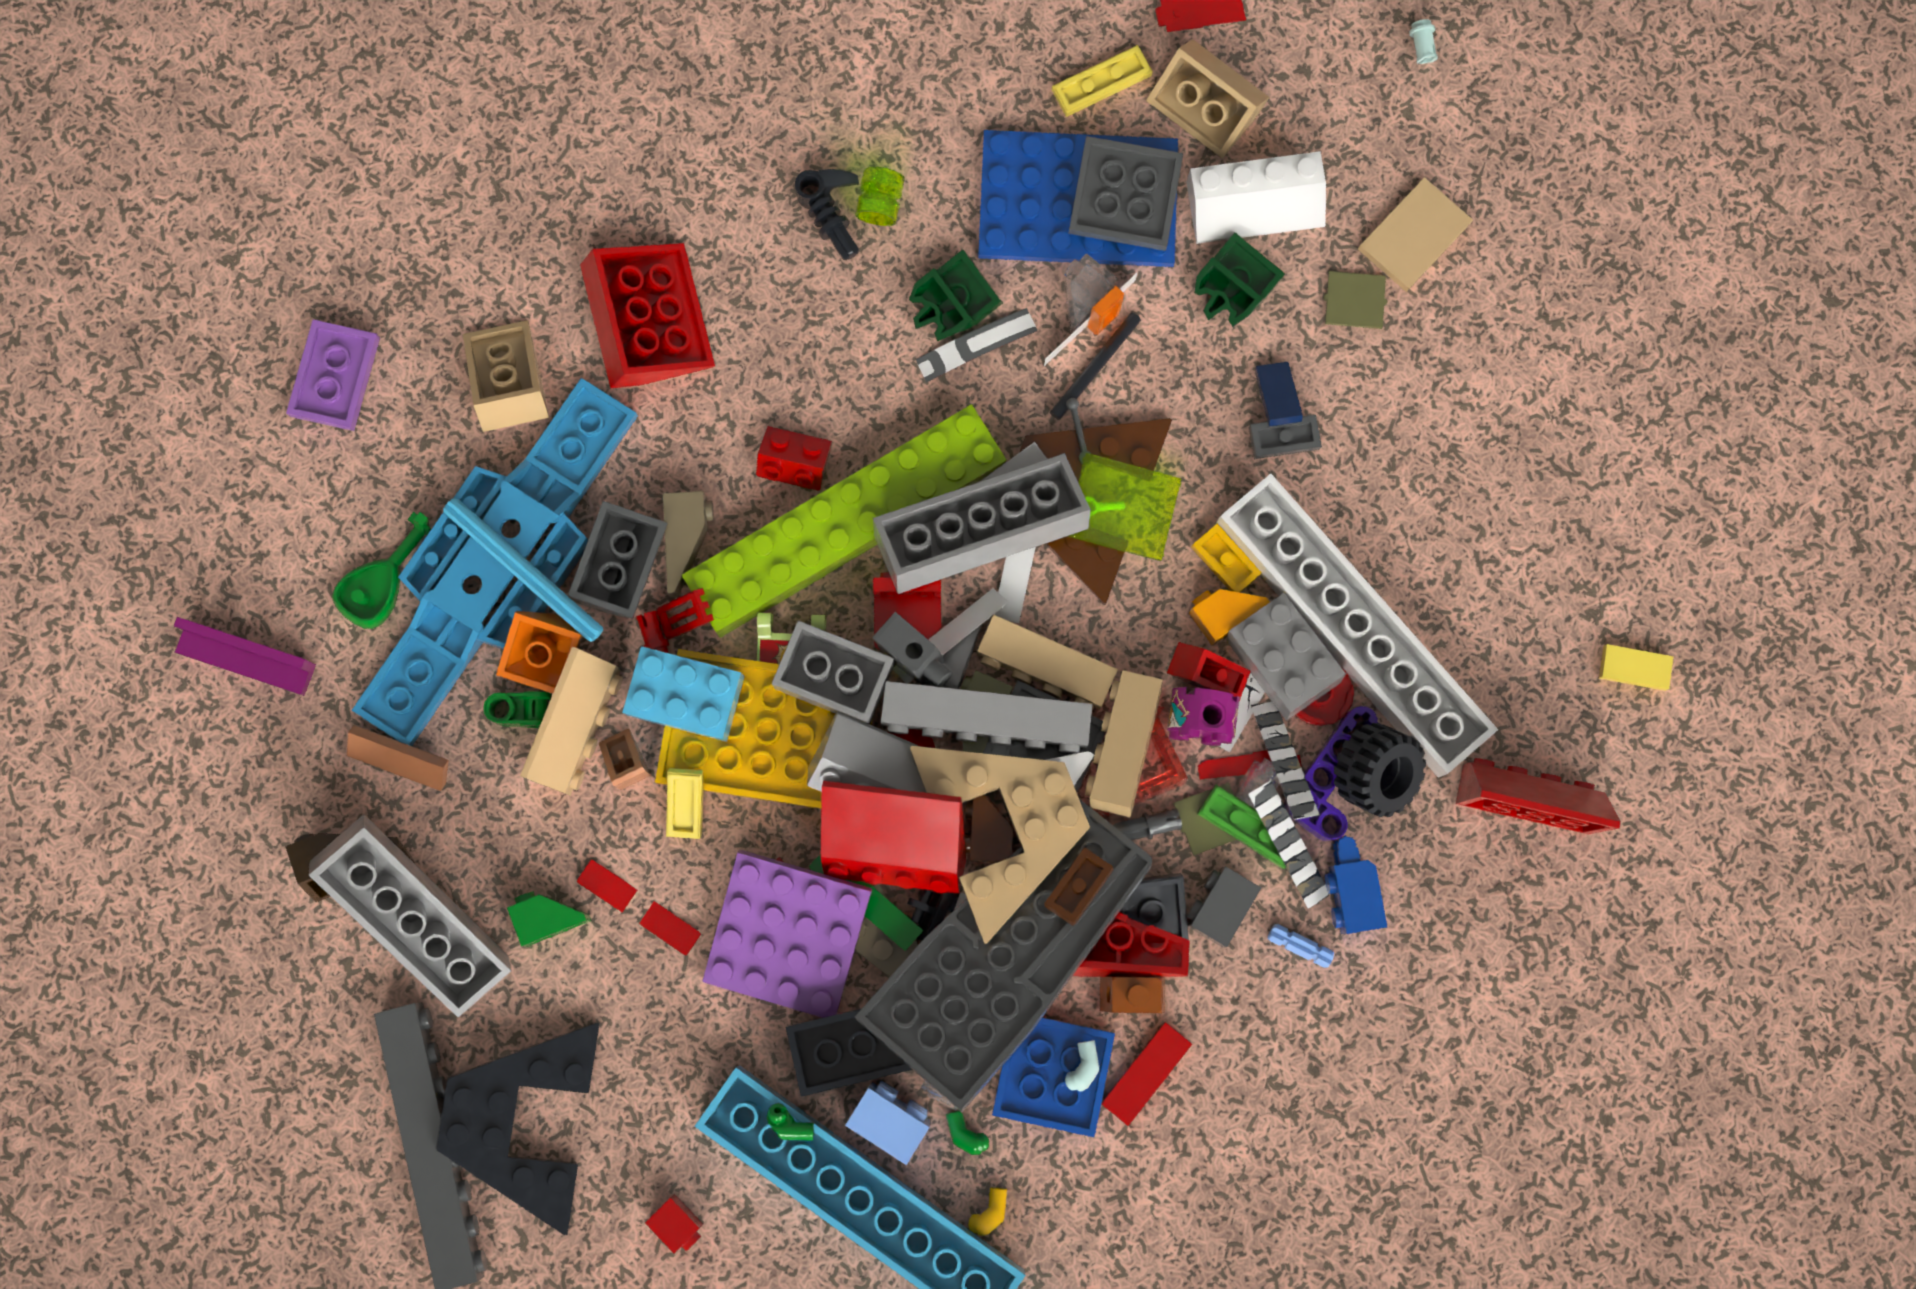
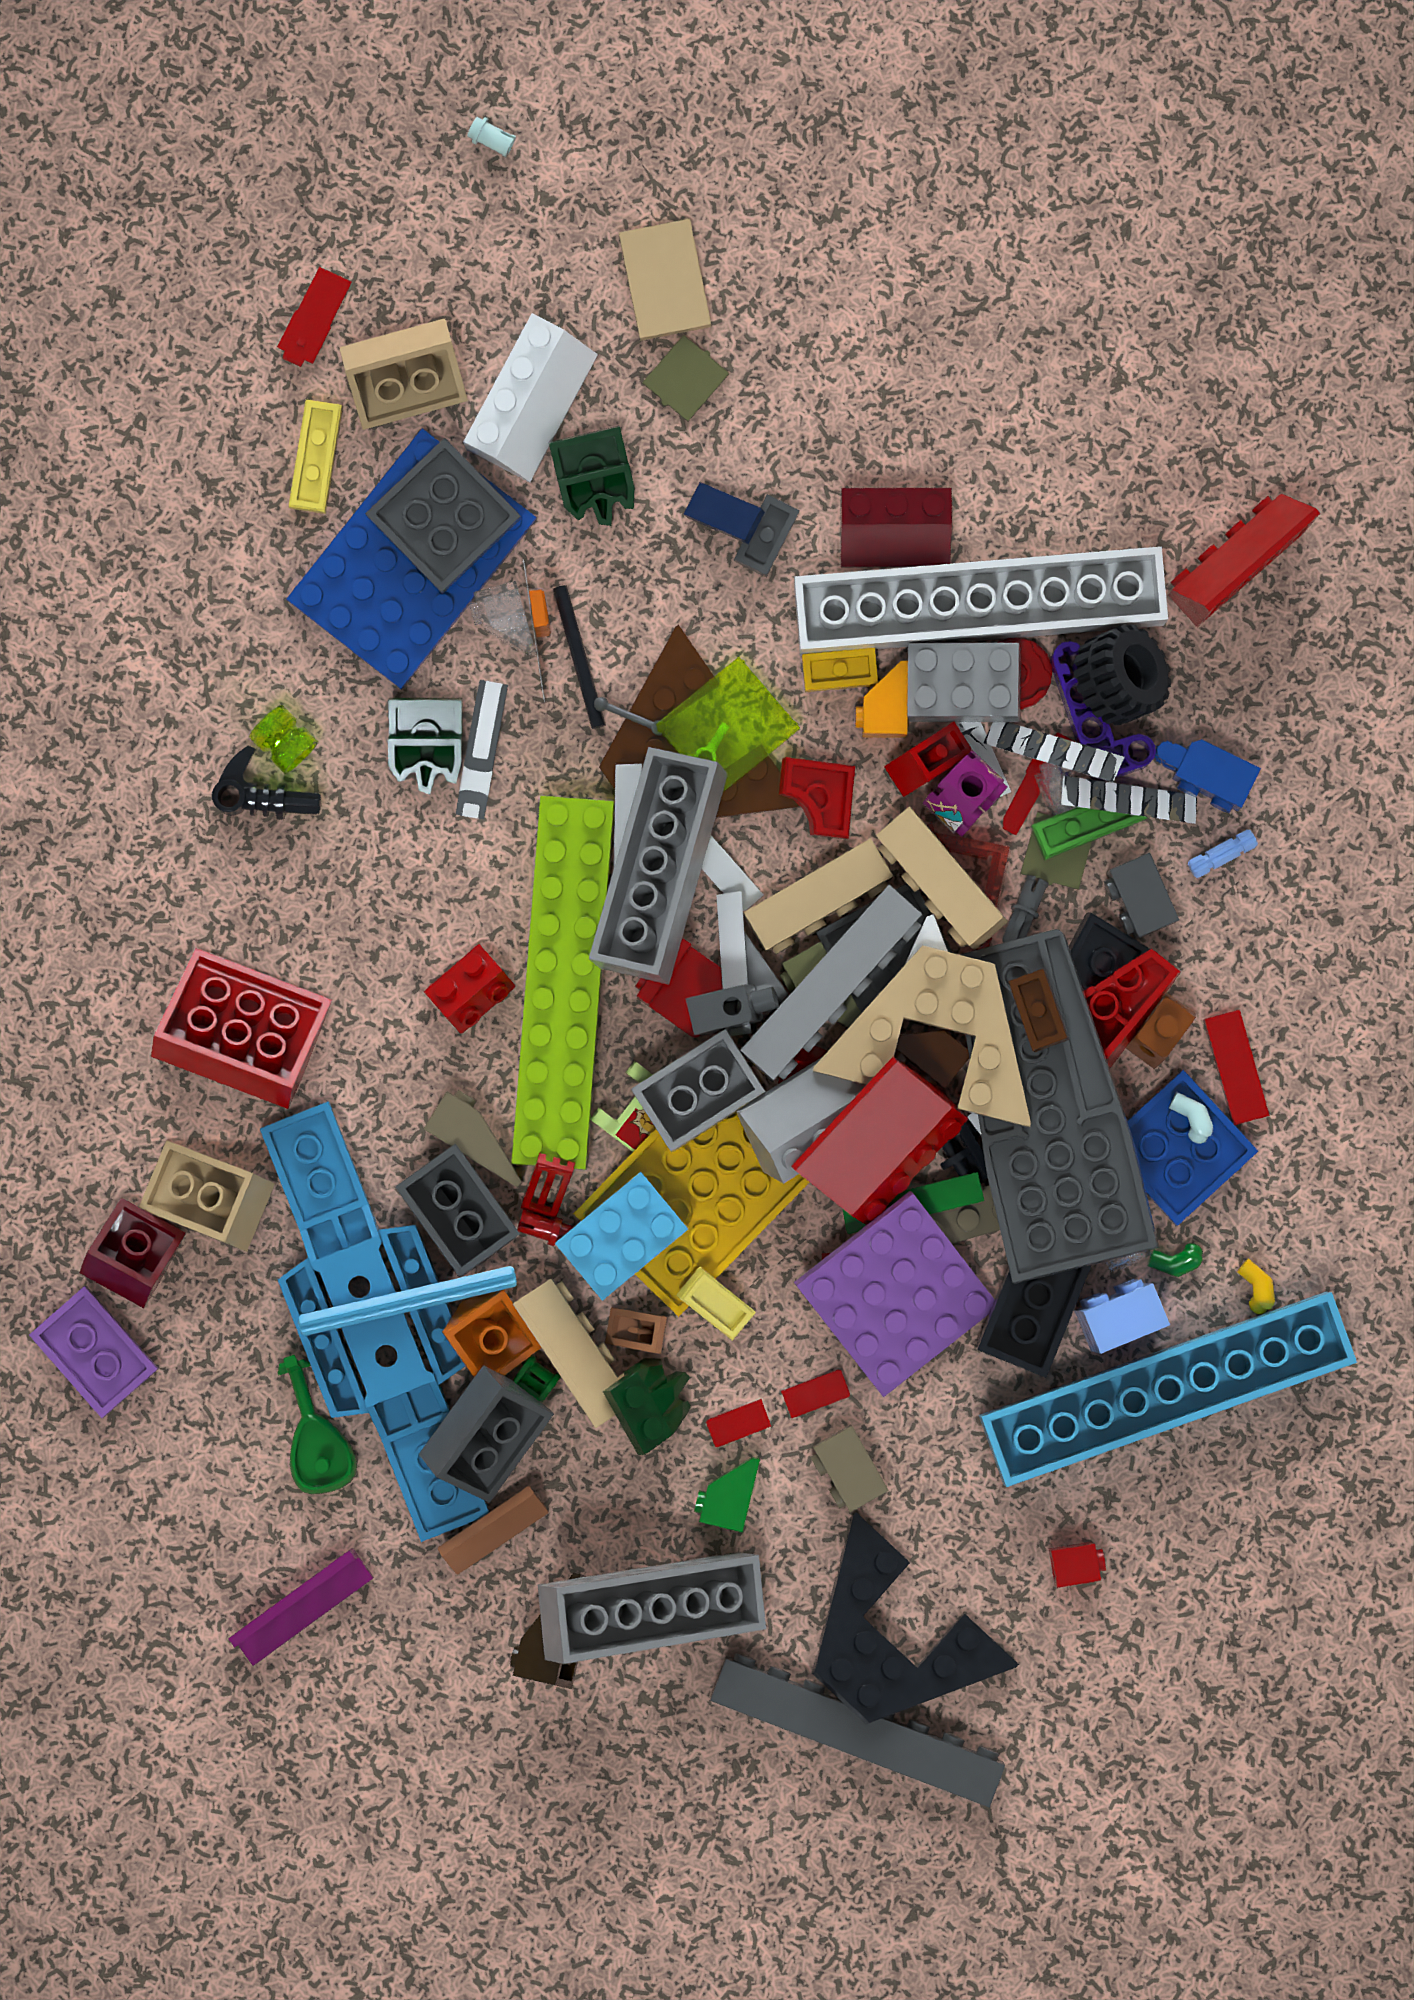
camera: 50 degrees left, 5 degrees up
(424, 350) = (132, 1253): none -> dark red slope
(460, 698) = (485, 1434): none -> dark grey slope
(571, 805) = (648, 1403): none -> dark green plate
(628, 994) = (849, 1469): none -> dark tan brick
(786, 1126) = (1063, 1407): green arm -> none
(1125, 611) = (822, 792): none -> red tile
(1363, 523) = (895, 527): none -> dark red slope
(1636, 667) = (1192, 379): light yellow tile -> none

